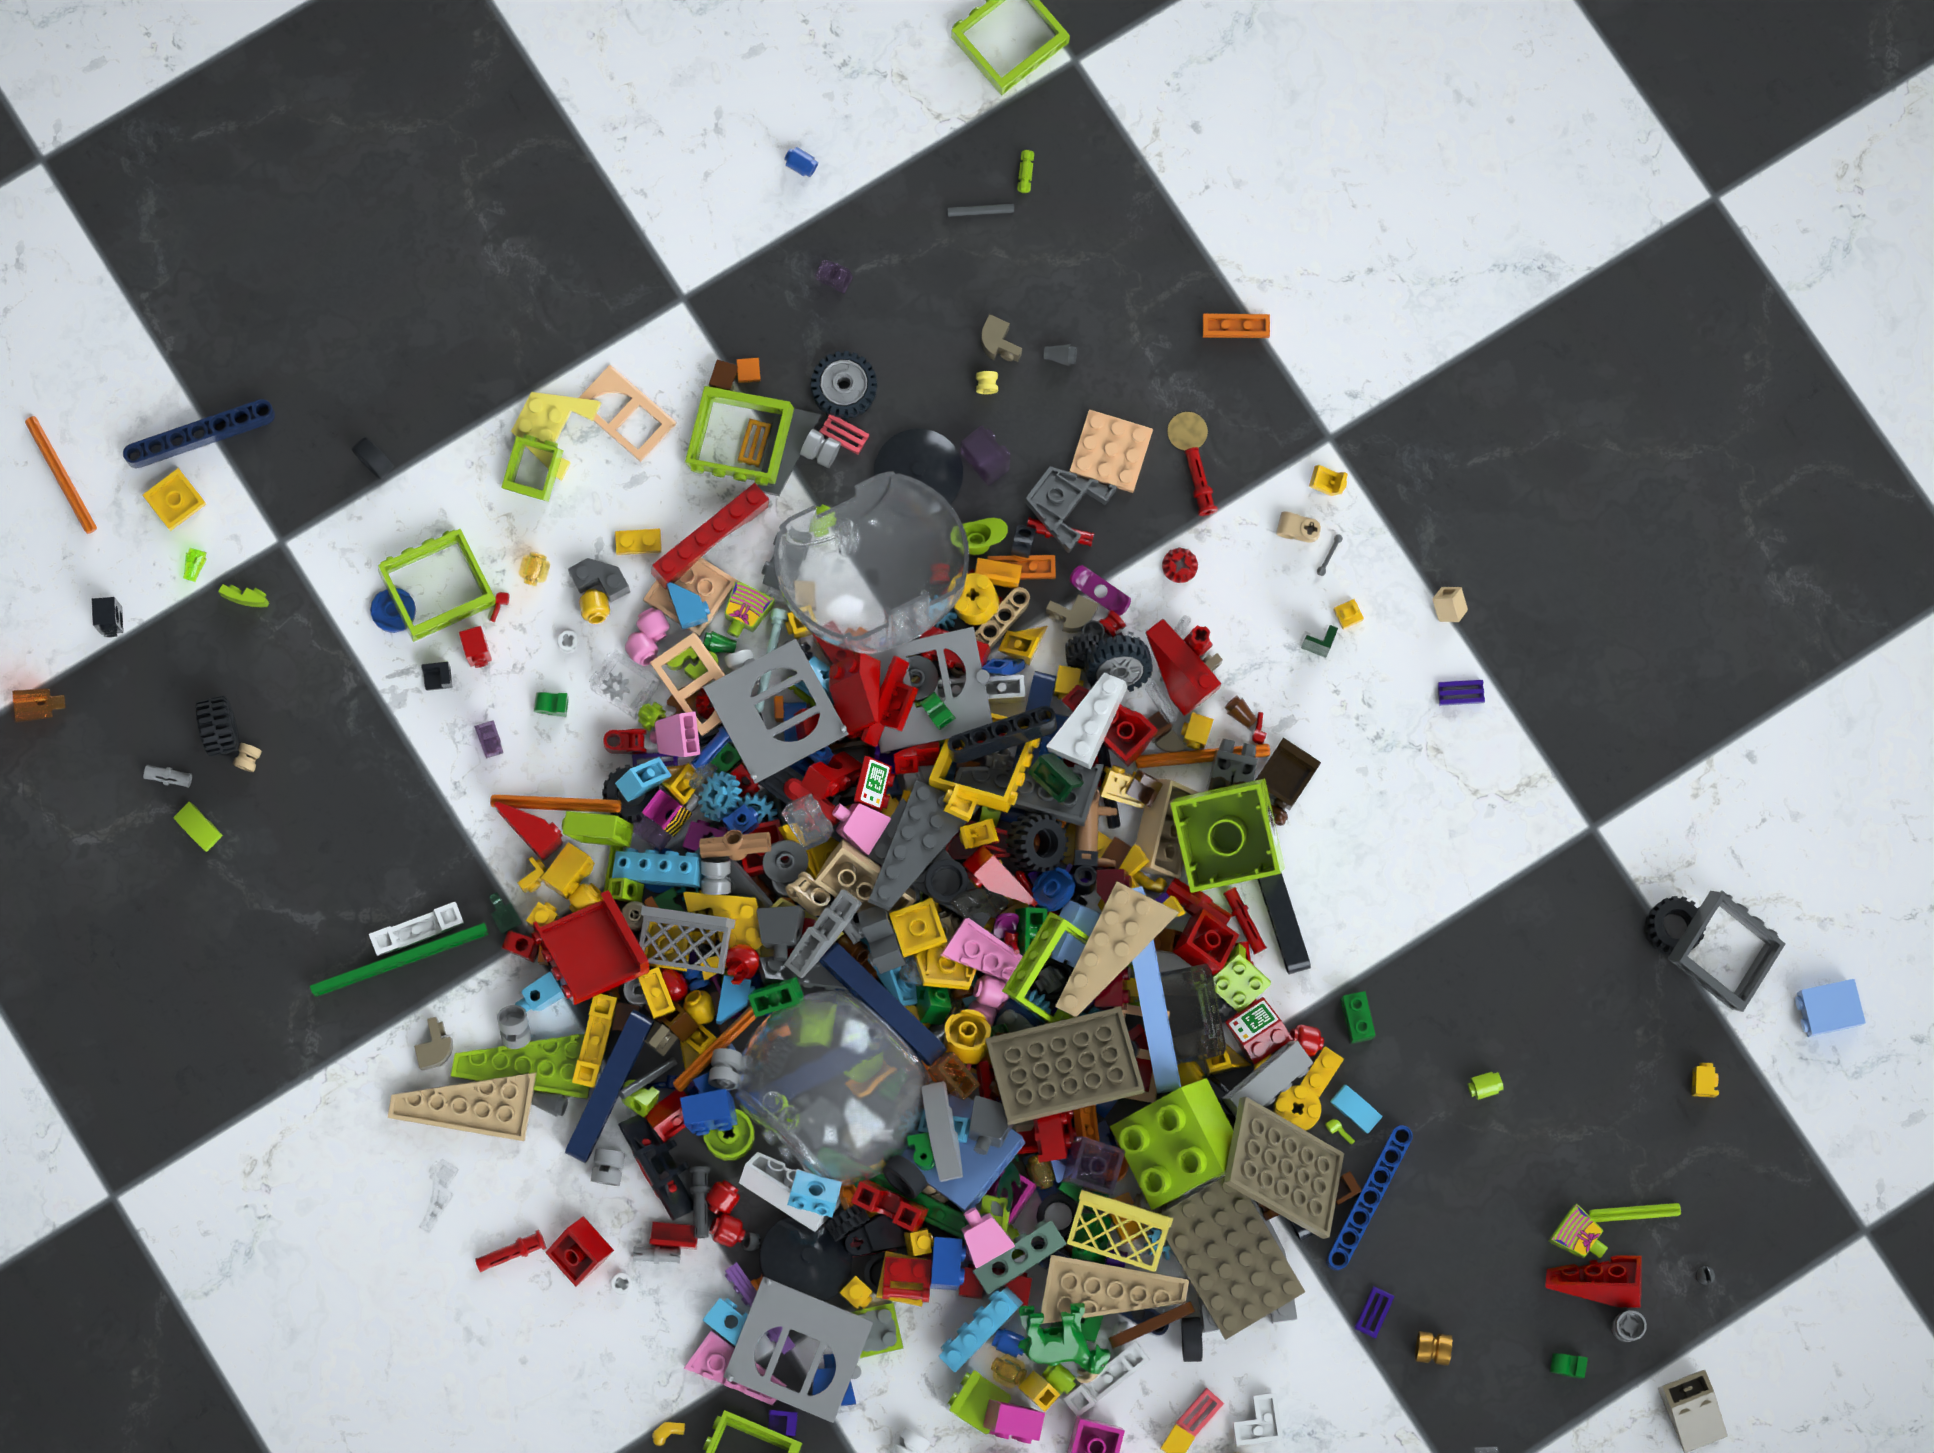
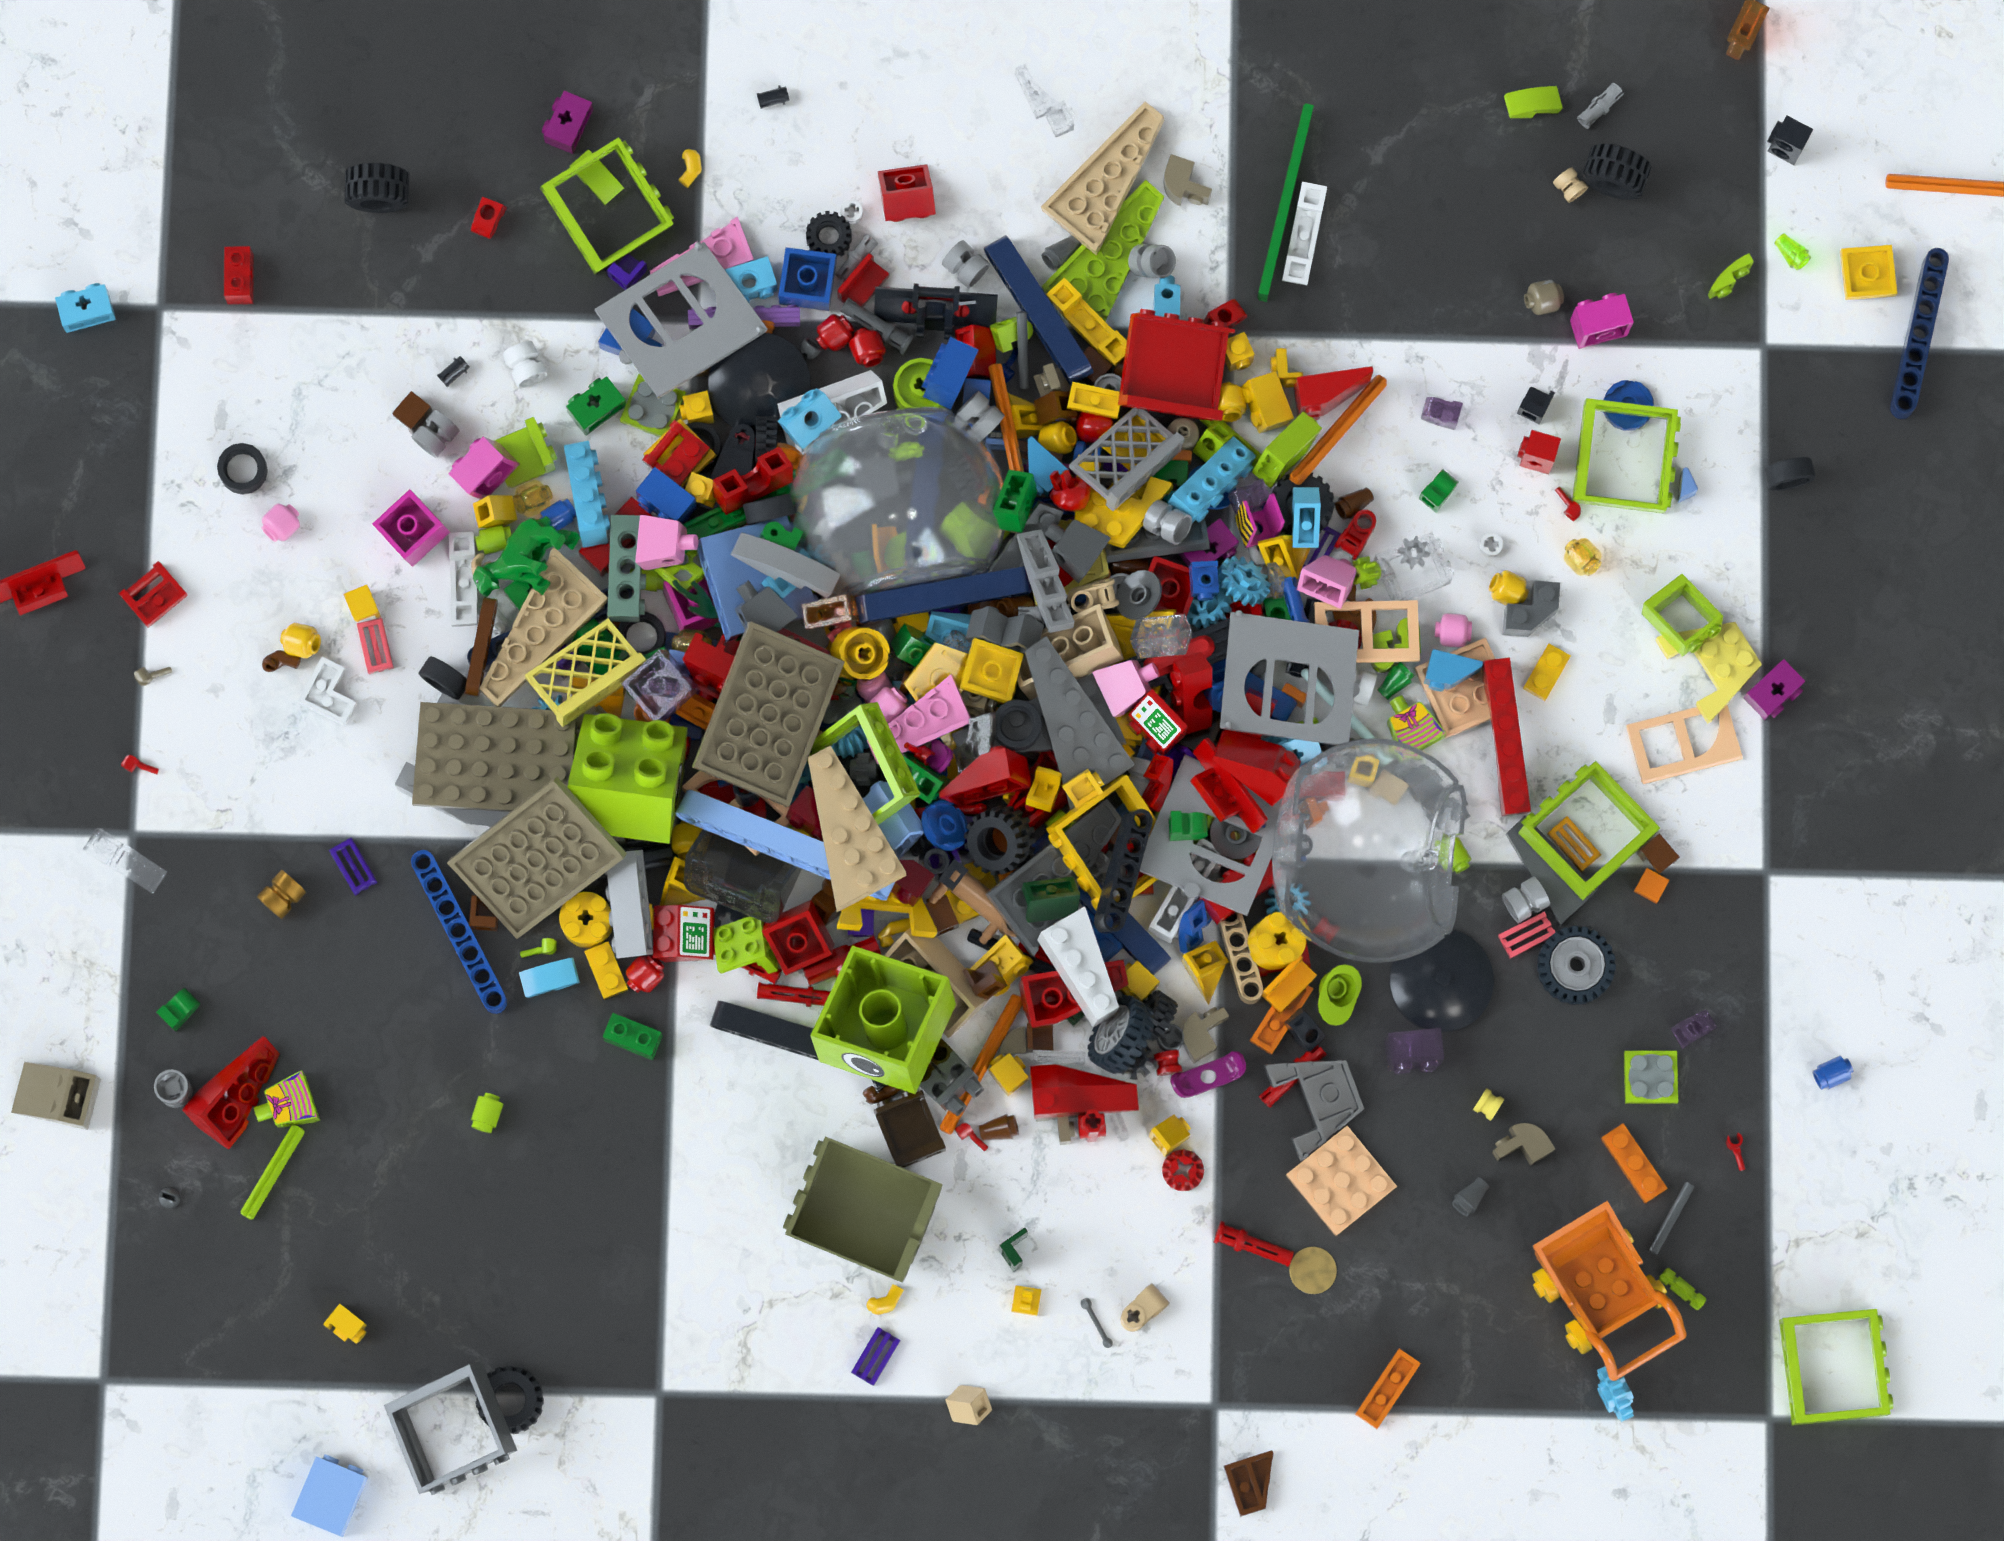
camera: 125 degrees right, 0 degrees up
(343, 665) = (1601, 320): none -> dark pink brick
(350, 721) = (1544, 297): none -> dark tan head
(429, 528) = (1687, 485): none -> medium blue slope
(505, 916) = (1262, 321): clear green plate -> none
(520, 1248) = (945, 143): red pin -> none
(553, 379) = (1780, 677): none -> magenta brick
(569, 1406) = (773, 97): none -> black pin
(603, 759) = (1353, 502): none -> reddish brown cone
(638, 1287) = (829, 220): none -> black tyre
(641, 648) = (1436, 604): bright pink head -> none
(699, 1278) = (807, 279): none -> blue brick
(735, 845) = (1183, 554): medium nougat piece -> none
(889, 285) = (1651, 1077): none -> light grey piece
(901, 194) = (1736, 1150): none -> red hand
(918, 1371) = (590, 417): none -> green brick
(959, 259) = (1634, 1163): none -> orange plate
(1069, 214) = (1601, 1284): none -> orange piece
(1133, 167) = (1615, 1395): none -> medium azure gear
(1162, 587) = (1170, 1134): none -> yellow slope
(1328, 481) = (1170, 1370): yellow bracket -> none
(1366, 378) = (1250, 1482): none -> reddish brown wing
(1372, 764) = (863, 1209): none -> olive cylinder
(1420, 709) = (885, 1304): none -> yellow arm

